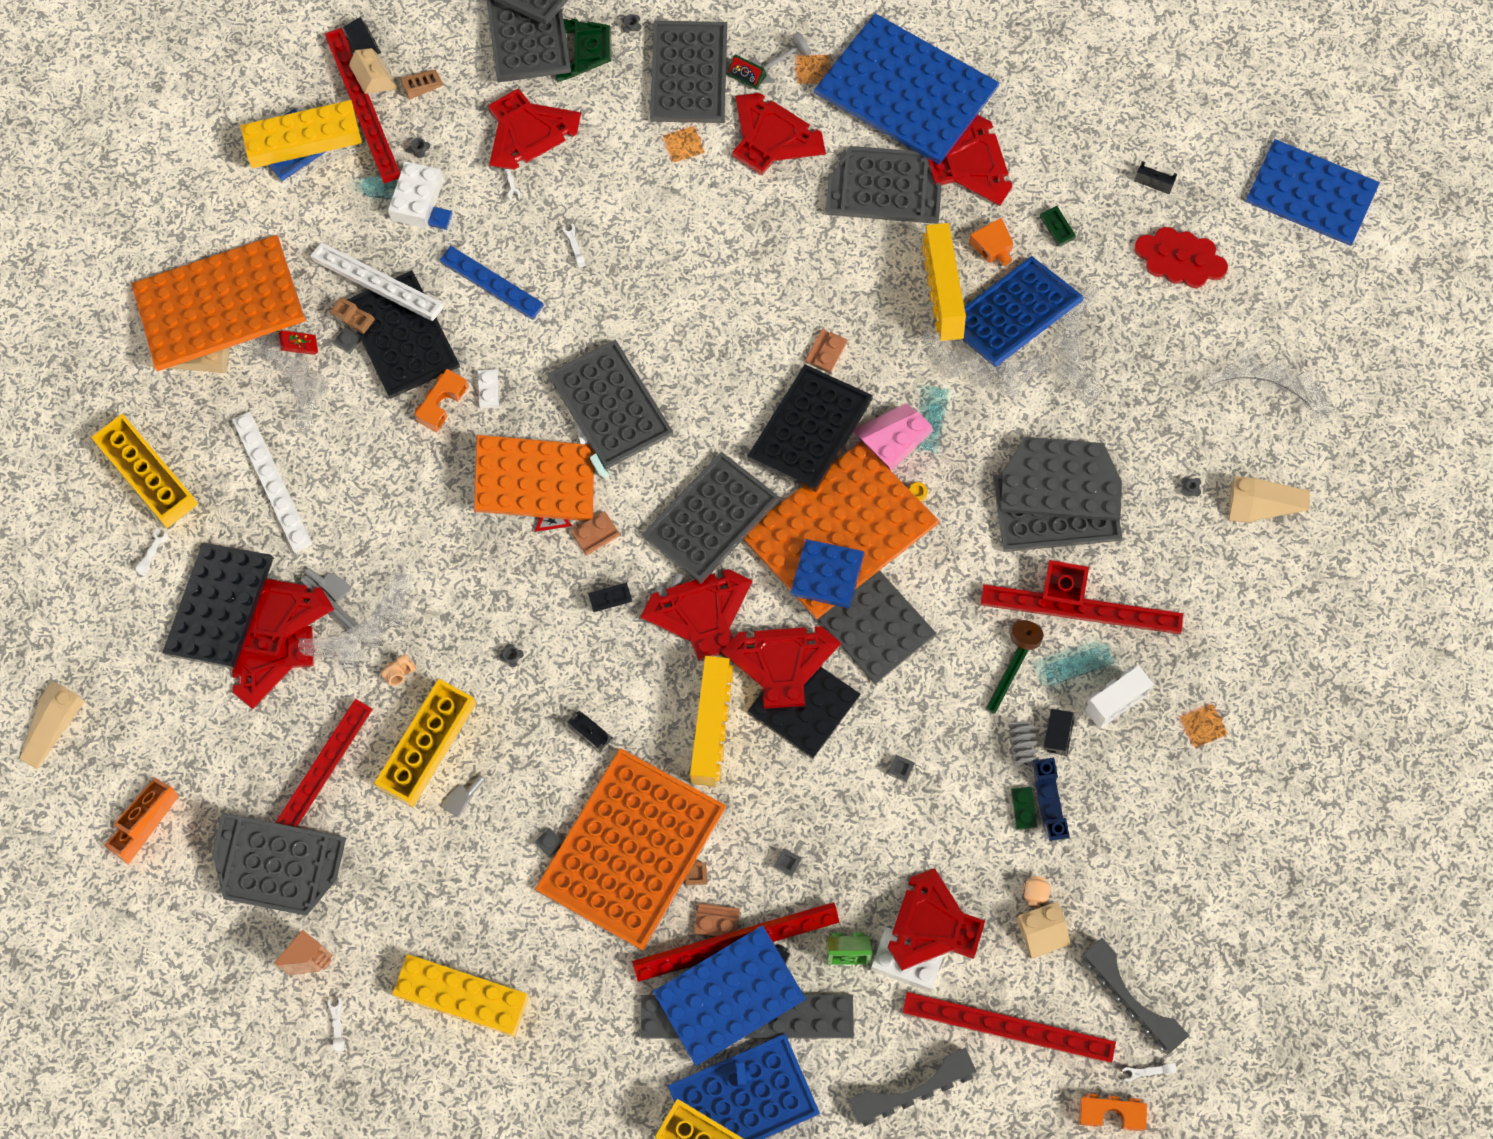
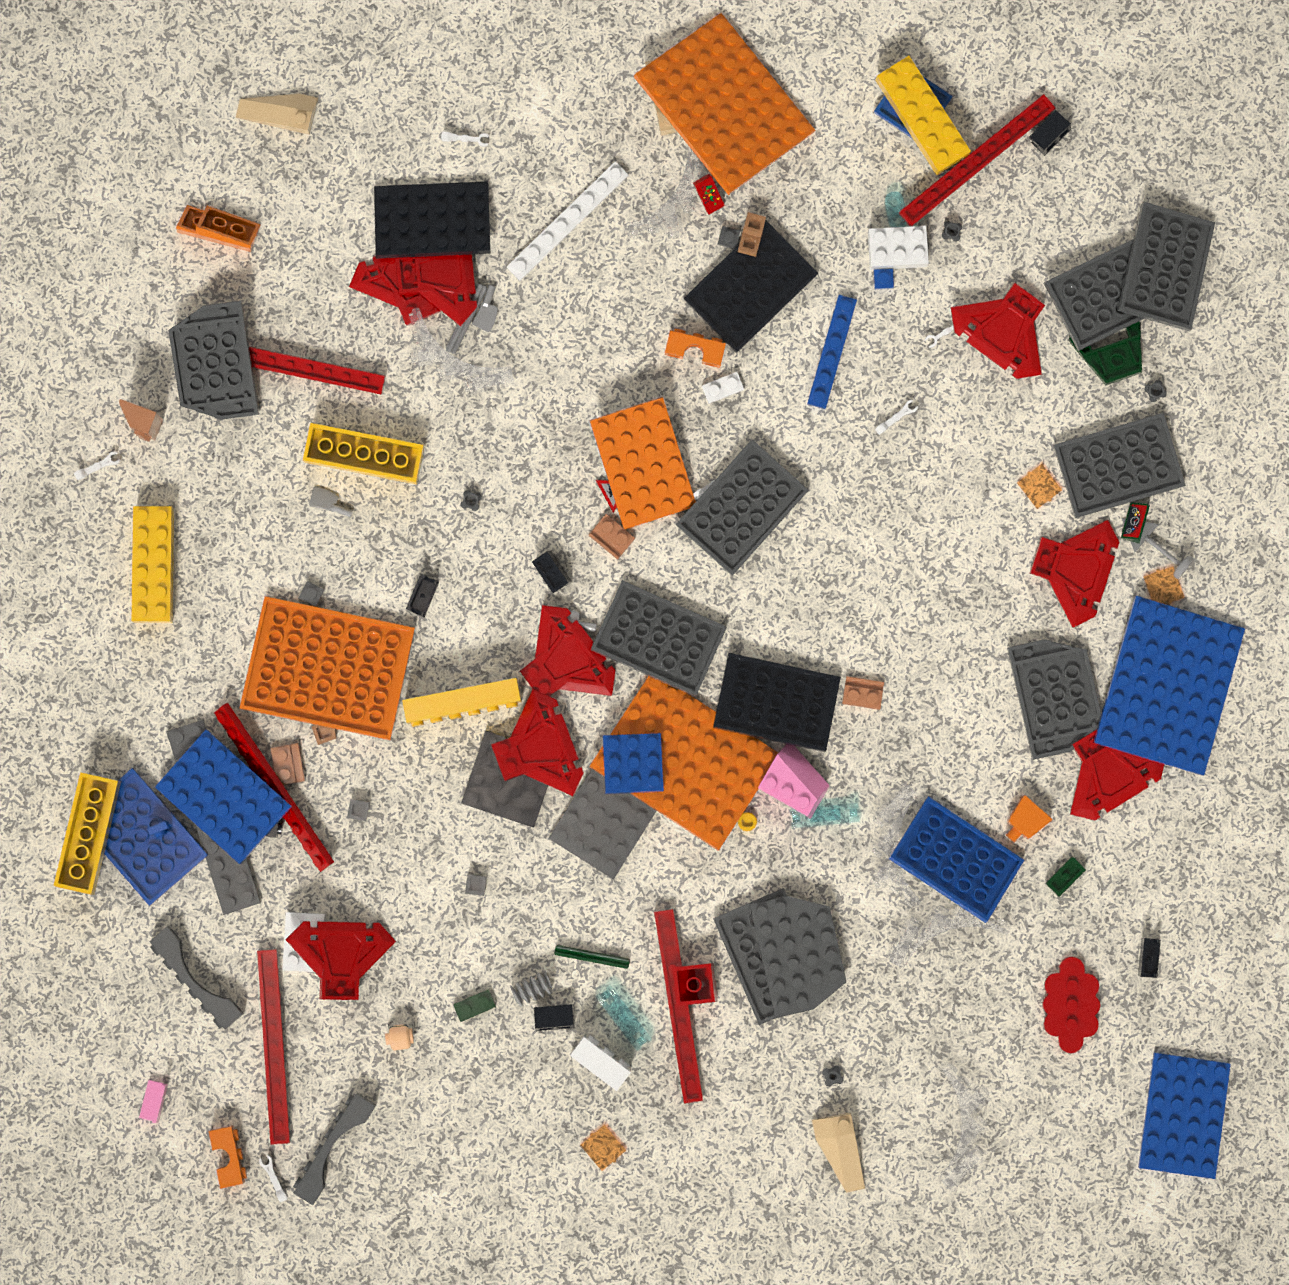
camera: 65 degrees right, 15 degrees up
(144, 470) = (537, 102): yellow brick -> none
(371, 72) = (1014, 158): tan slope -> none
(377, 281) = (793, 245): white plate -> none
(395, 671) = (423, 401): light nougat plate -> none
(424, 88) = (1012, 207): medium nougat slope -> none
(599, 466) = (675, 517): light aqua tile -> none
(848, 949) = (295, 887): bright green slope -> none
(944, 282) = (960, 785): yellow brick -> none
(1026, 635) = (629, 959): reddish brown piece -> none
(1044, 930) = (368, 1053): tan slope -> none
(1049, 801) = (485, 1027): dark blue slope -> none

